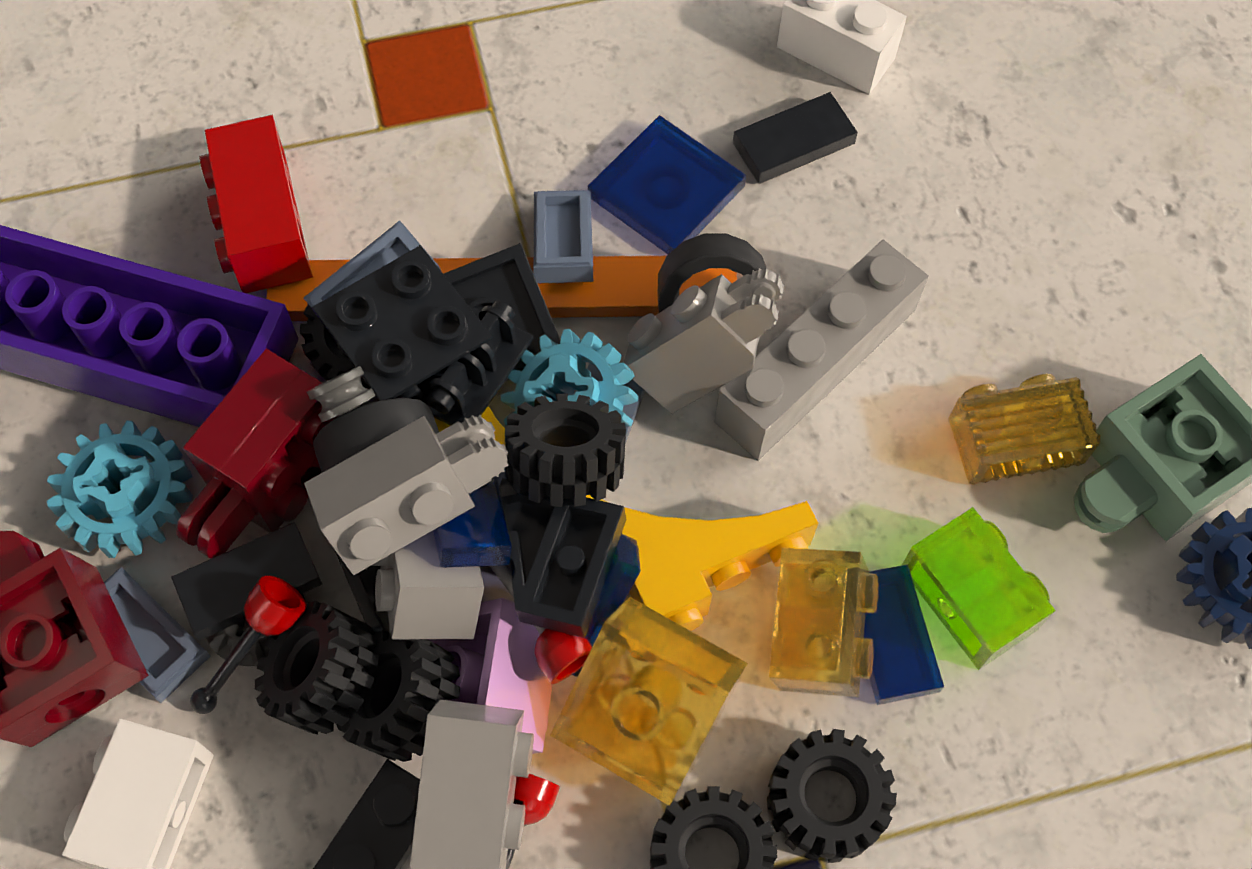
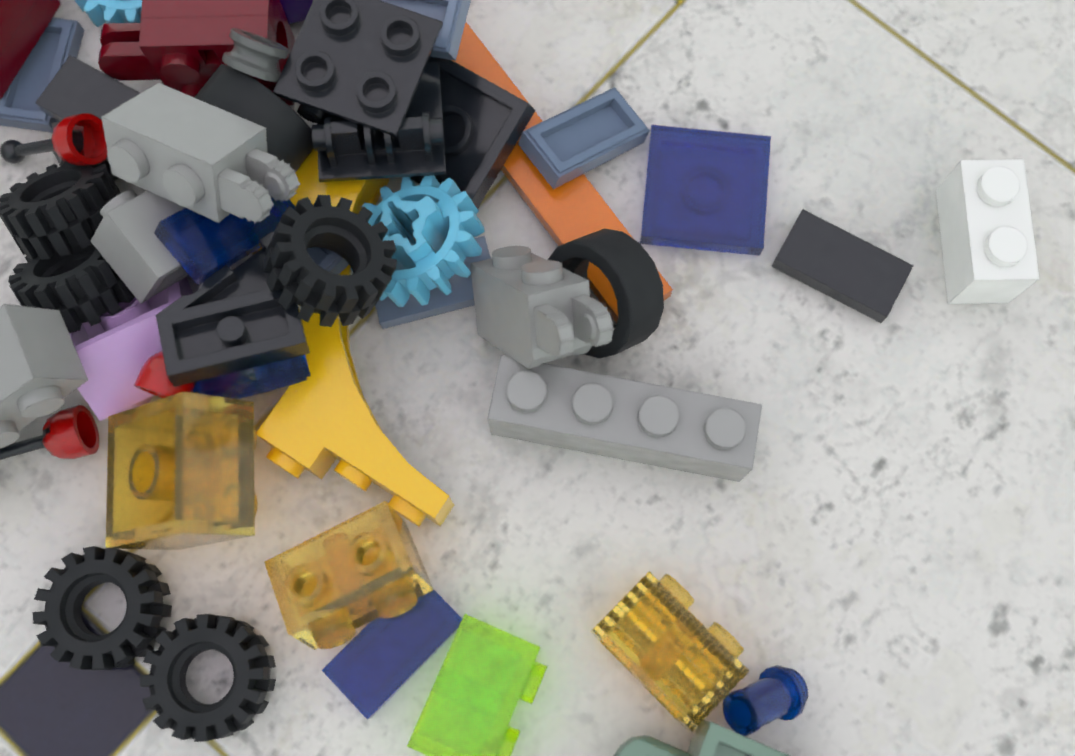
camera: 60 degrees right, 10 degrees up
(1102, 383) = (776, 695): none -> clear blue pin

